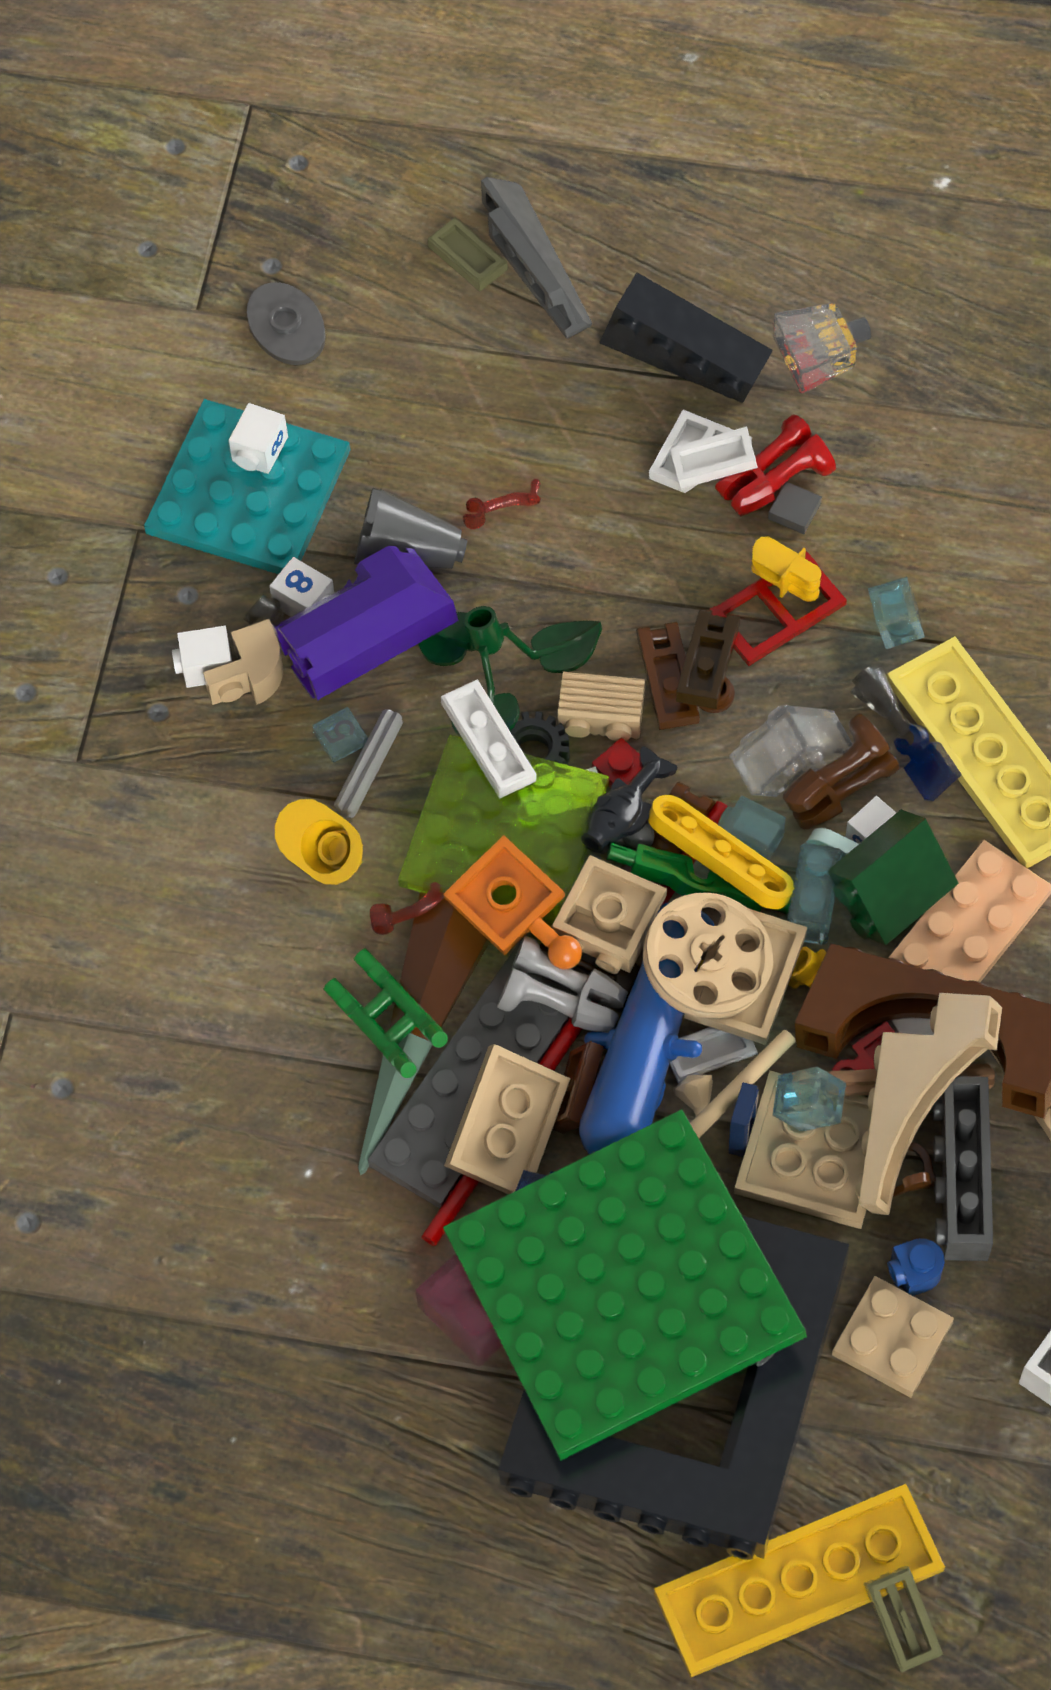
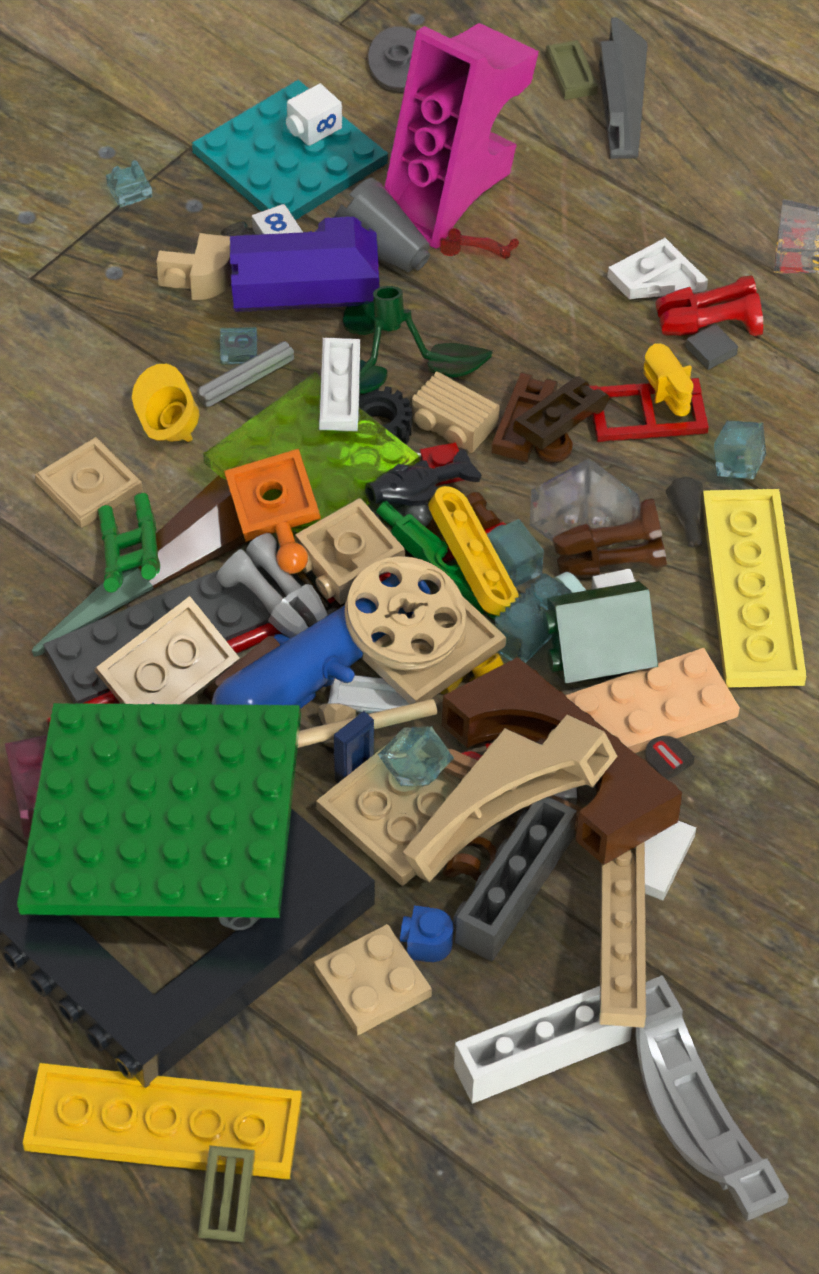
camera: 25 degrees right, 10 degrees down
(109, 605) = (128, 184): none -> clear light blue tile
(201, 652) = (171, 237): white brick -> none
(291, 961) = (88, 481): none -> tan tile
(384, 919) = (180, 481): clear red piece -> none
(429, 392) = (445, 121): none -> dark pink piece
(684, 340) = (698, 189): black wedge -> none
(713, 457) = (663, 276): white tile -> none
(930, 764) = (696, 571): clear blue plate -> none
(1016, 970) = (668, 756): none -> clear smoke tile

